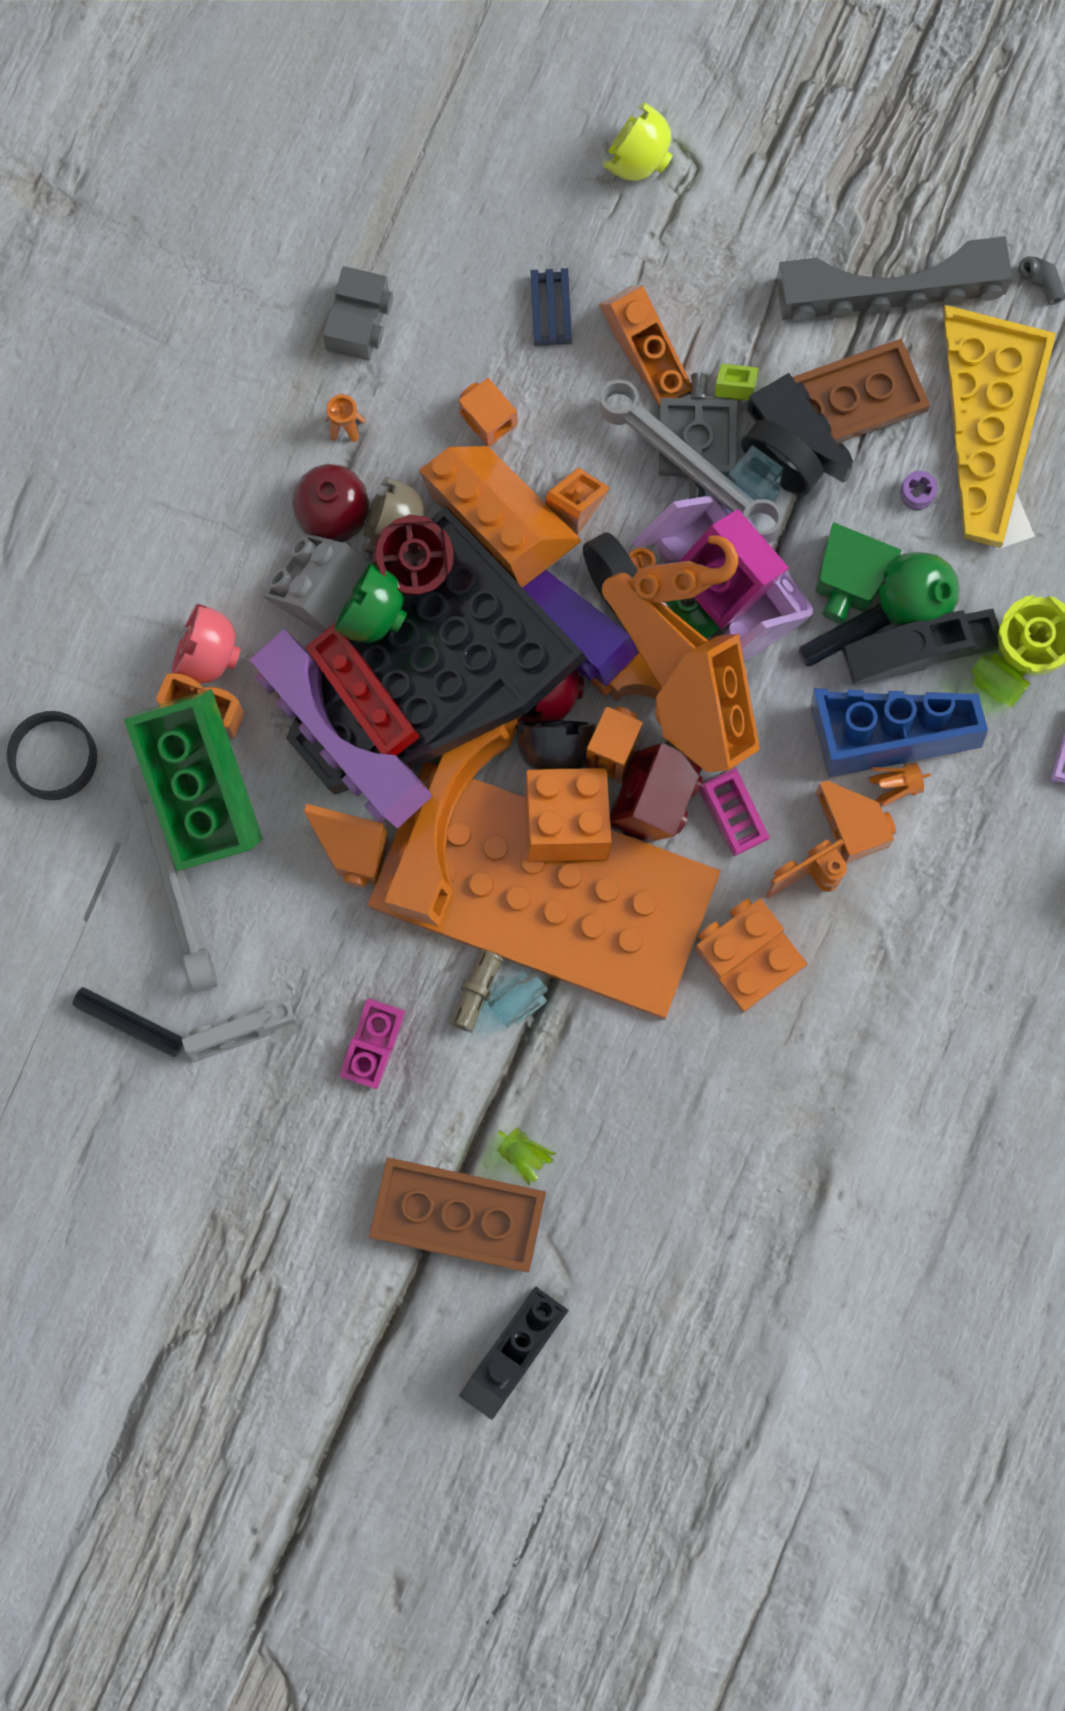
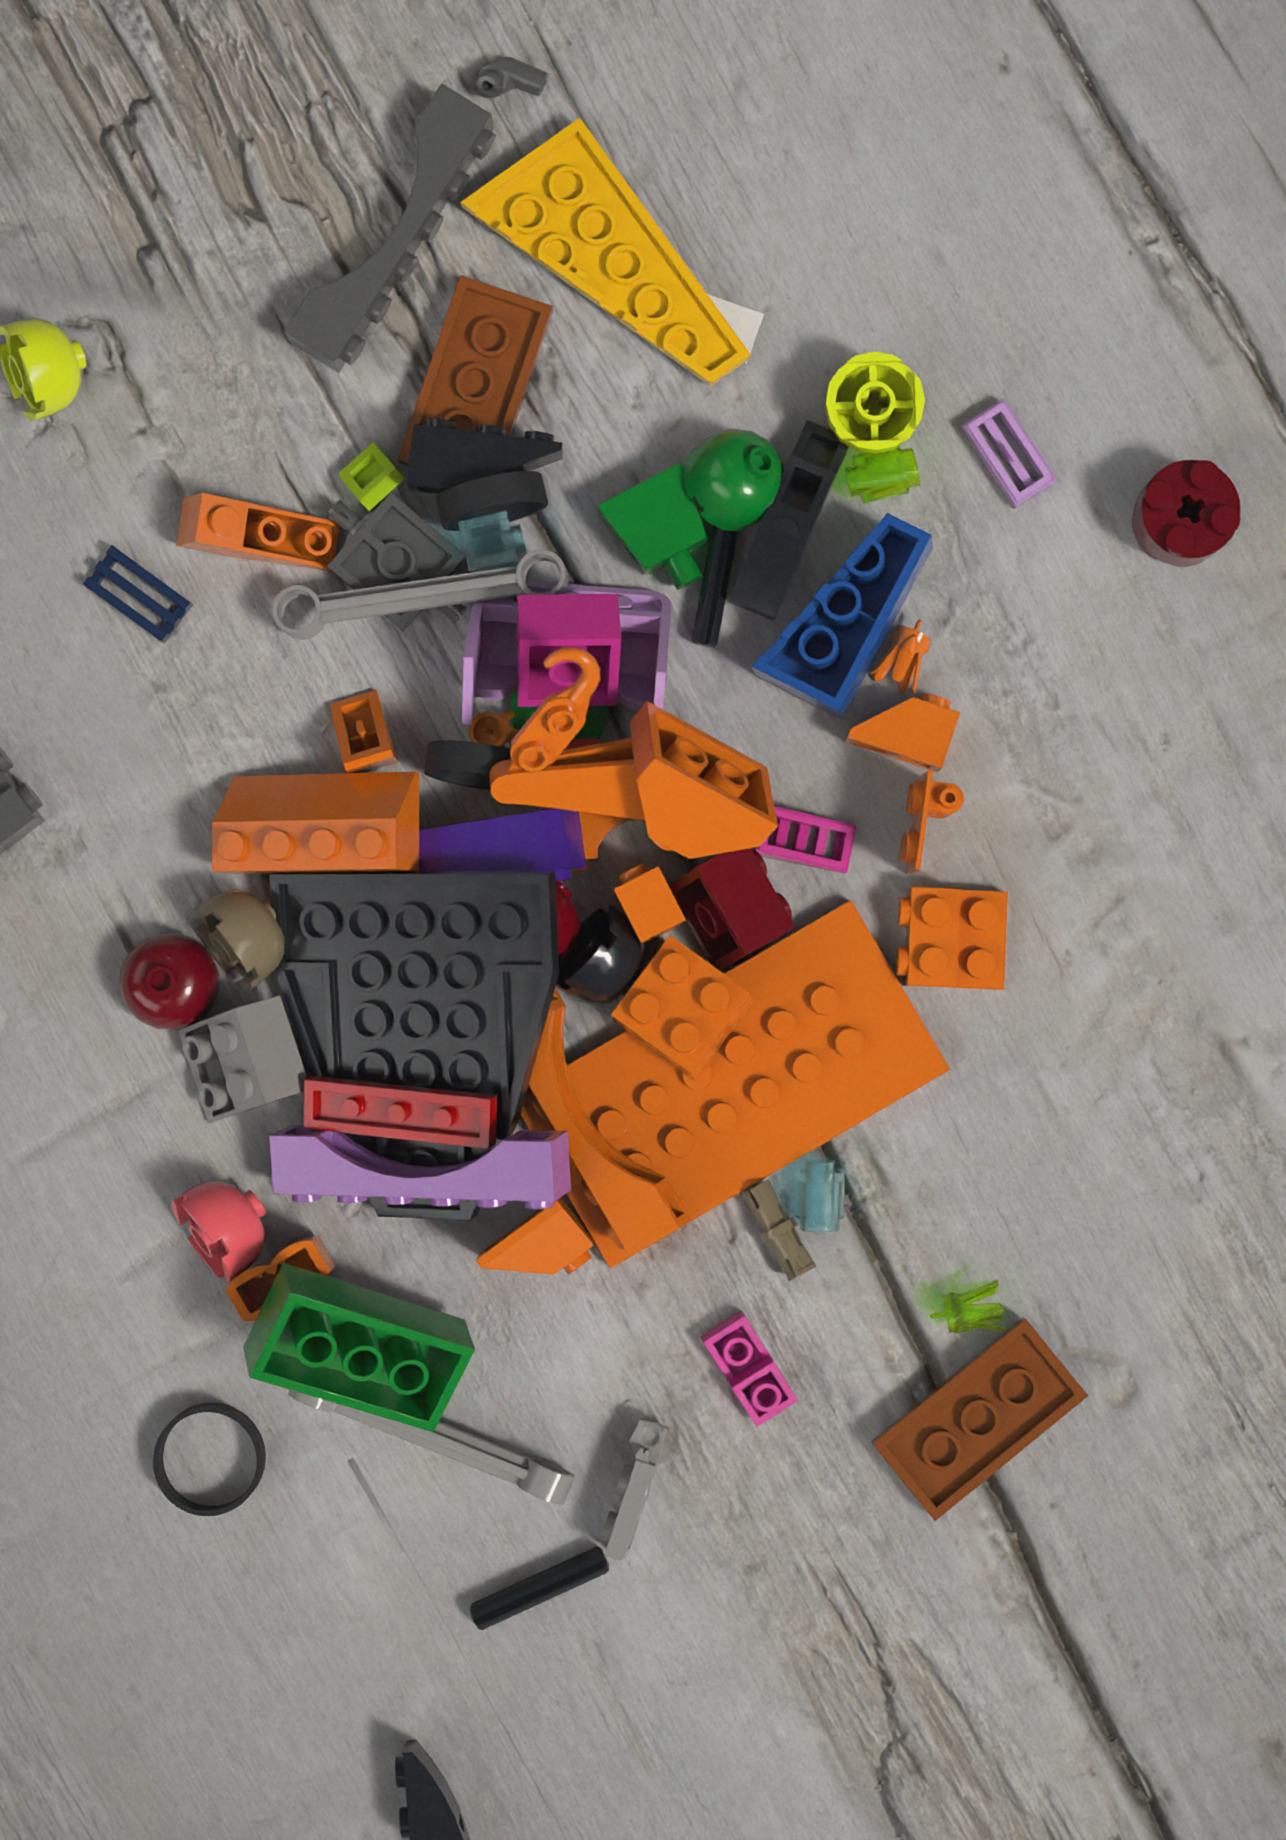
camera: 55 degrees left, 10 degrees up
(343, 413) = (86, 898): orange piece -> none
(372, 607) = (322, 1034): green cylinder -> none
(414, 553) = (306, 955): dark red cylinder -> none
(487, 411) = (199, 749): orange brick -> none
(513, 1353) = (1150, 1468): black slope -> none
(923, 500) = (613, 384): medium lavender bush -> none

